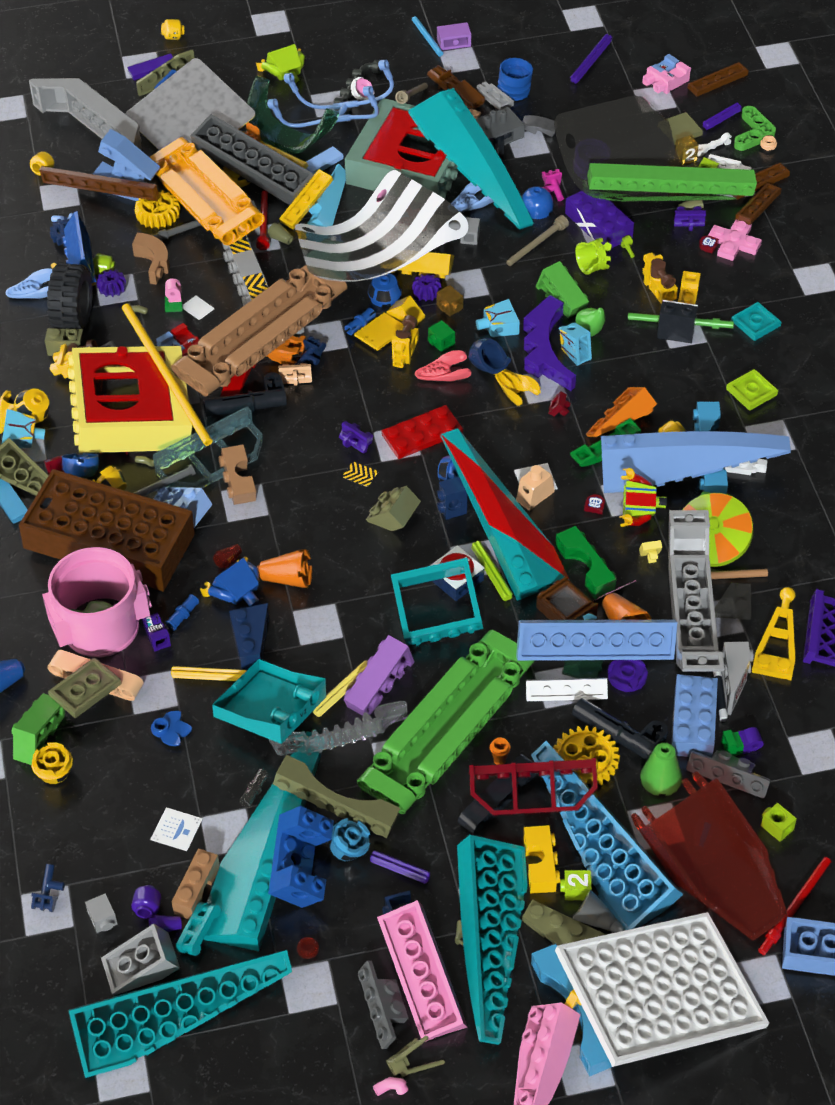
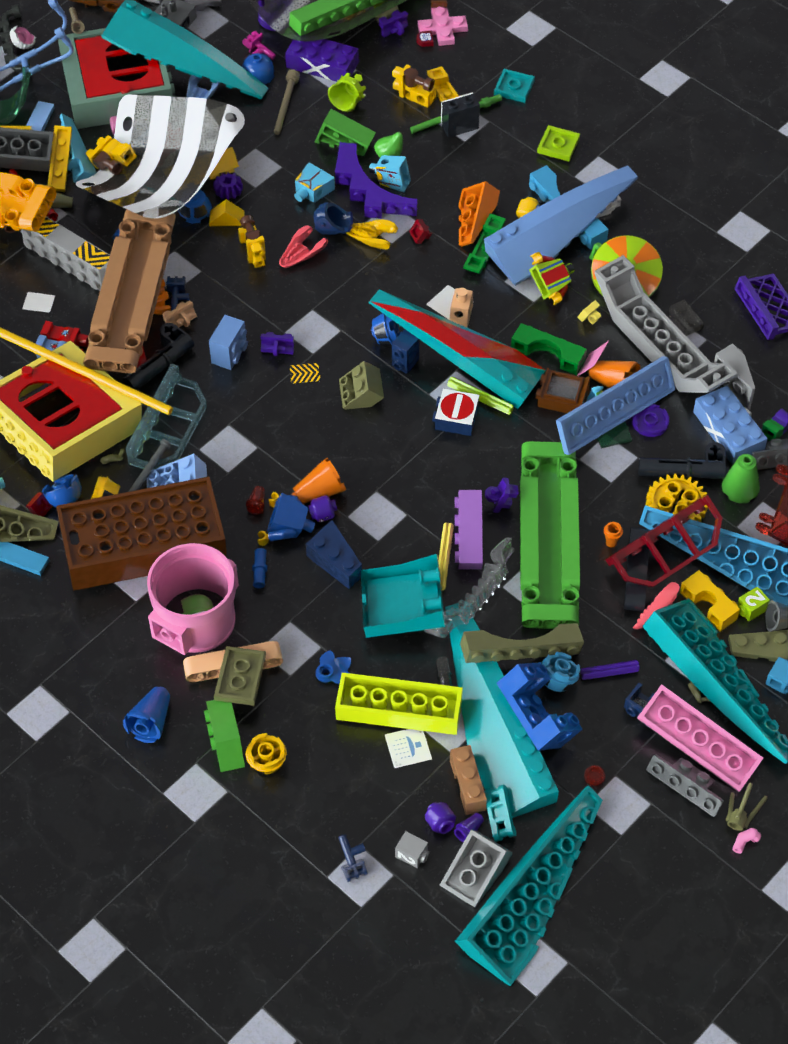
camera: 35 degrees left, 5 degrees up
(156, 631) = (253, 596): dark purple leg -> none
(173, 296) = (16, 302): bright pink leg -> none
(193, 787) = (399, 703): none -> neon yellow brick
(206, 673) = (327, 605): yellow axle -> none
(240, 488) = (218, 438): medium nougat arch -> none
(273, 591) = (322, 508): none -> dark purple head
(311, 413) = (228, 342): none -> medium blue brick
(349, 211) = (109, 150): none -> yellow hips
(360, 321) = (195, 243): blue pin -> none
(379, 331) = (219, 243): yellow container -> none
(420, 431) = (326, 311): red plate -> none
(428, 574) = (469, 483): teal window -> none
(431, 664) = (501, 495): none -> dark purple hips
(441, 336) = (276, 221): green brick -> none
(449, 300) = (257, 188): pearl gold brick -> none
(497, 830) = (663, 599): none -> coral animal
(566, 689) = (618, 458): white plate -> none
(594, 504) = (515, 298): dark red tile -> none
(626, 242) = (359, 69): lime hand -> none
(739, 574) = (672, 293): medium nougat bar -> none
(775, 665) = (754, 353): yellow plate -> none

